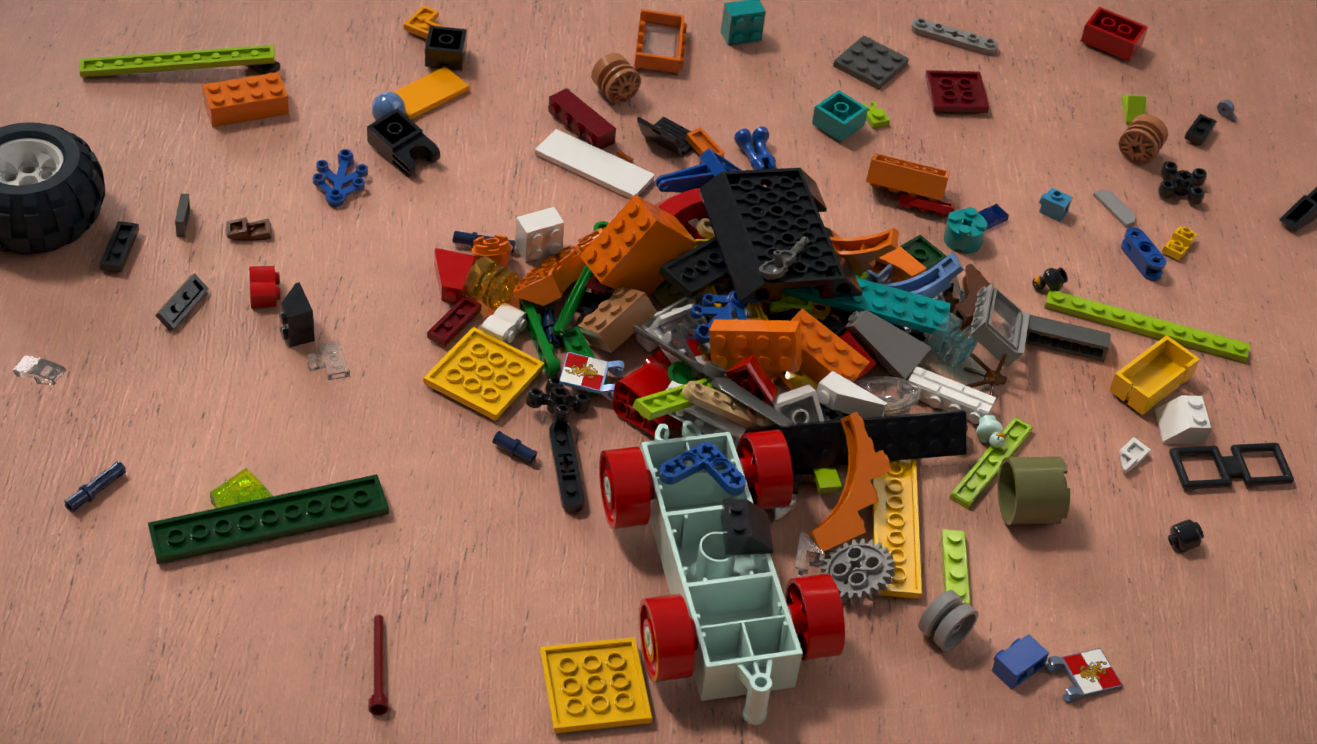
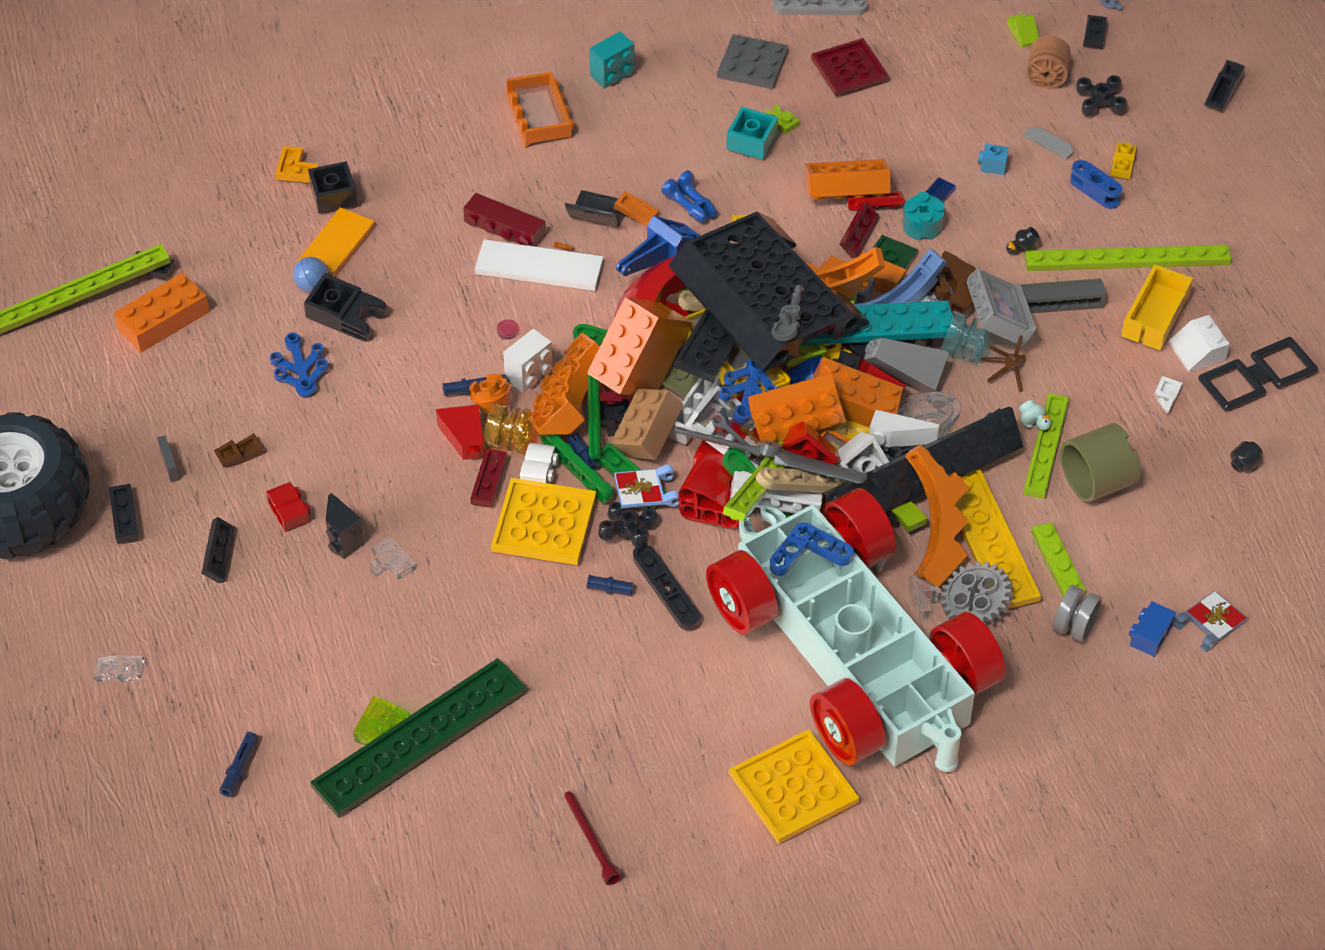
camera: 15 degrees left, 5 degrees up
(538, 204) = (507, 329): none -> clear pink tile
(616, 78) = (518, 165): nougat wheel -> none
(745, 528) = (872, 594): black slope -> none
(904, 219) = (859, 229): none -> dark red plate
(951, 395) = (985, 392): white brick -> none

